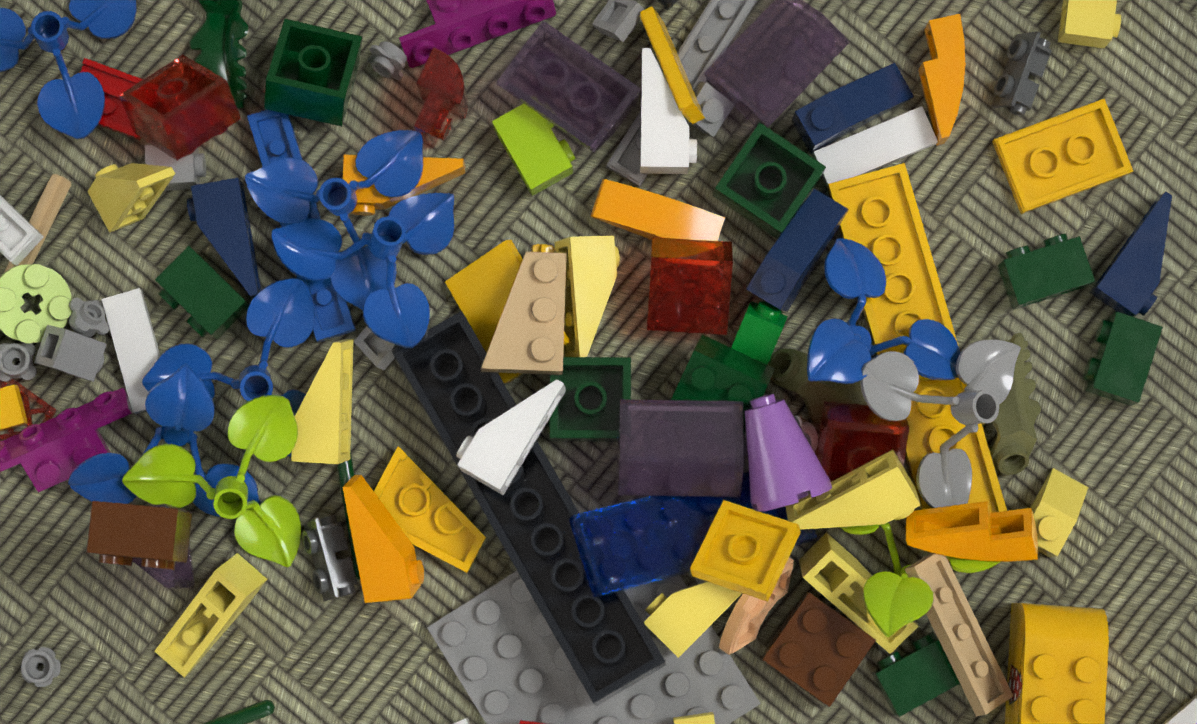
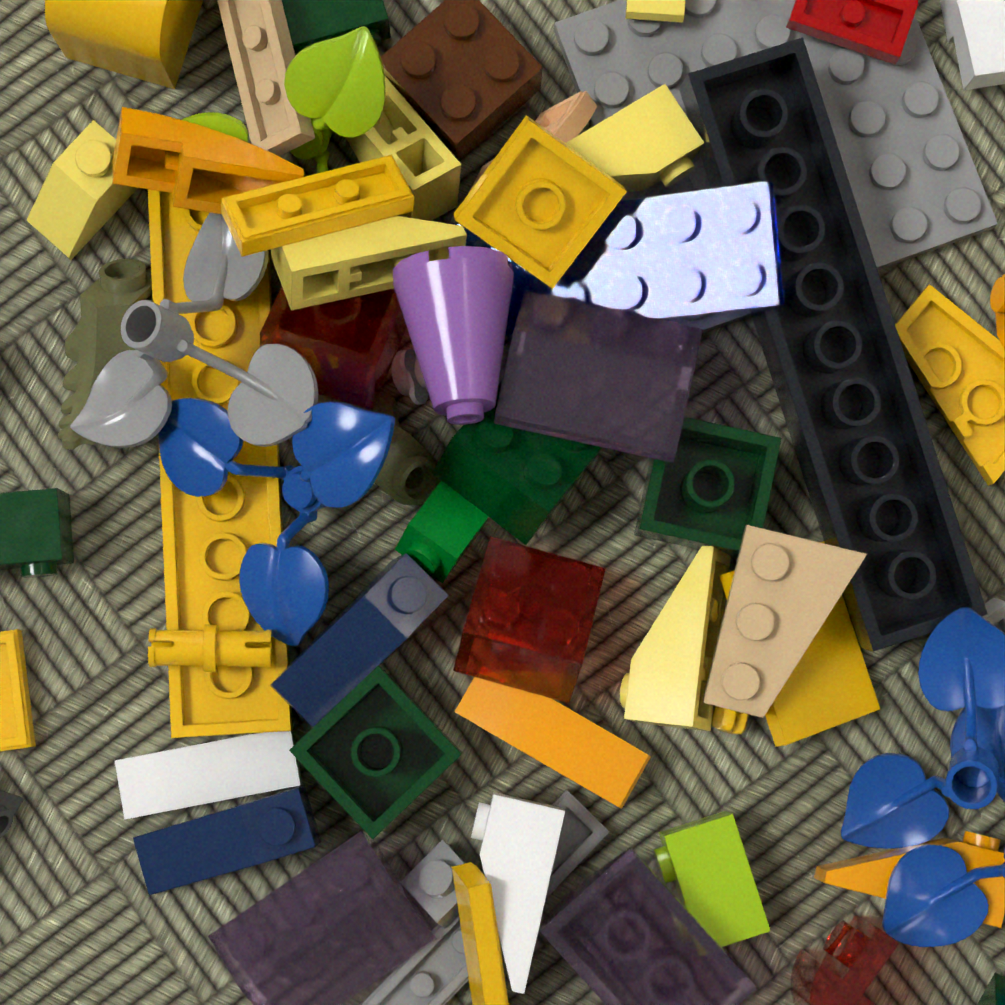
camera: 175 degrees left, 0 degrees up
(505, 442) = (861, 428): white slope -> none
(891, 519) = (317, 205): none -> yellow tile
(892, 223) = (210, 648): none -> yellow pin
(944, 74) = (79, 856): light orange slope -> none

